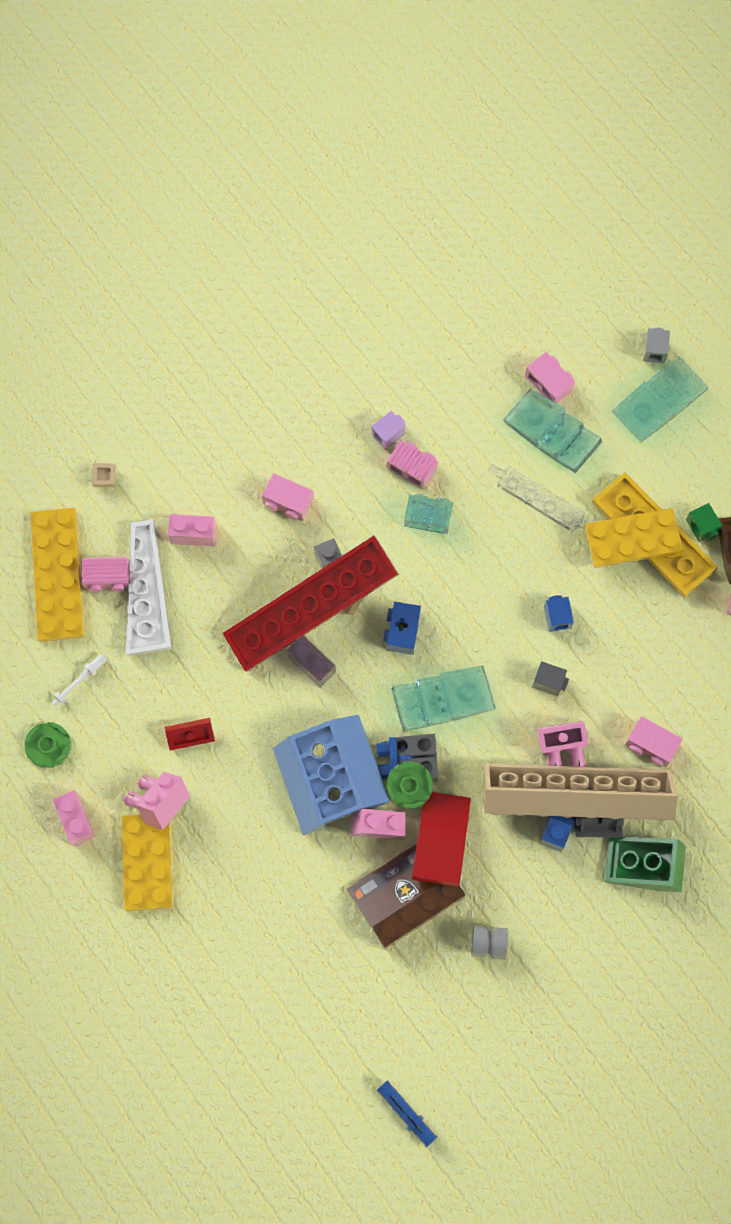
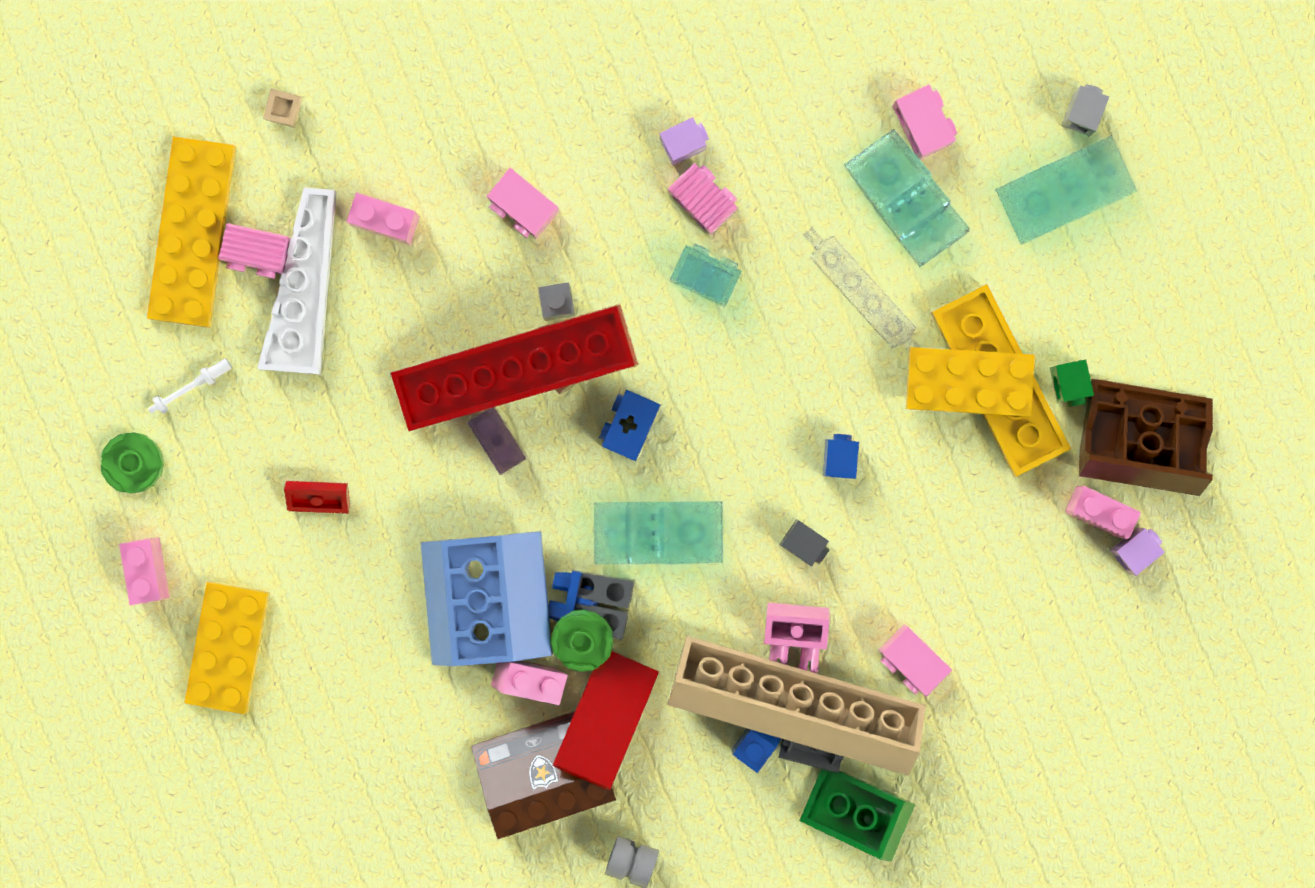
camera: 15 degrees right, 15 degrees up
(161, 800) = (260, 579): bright pink brick -> none

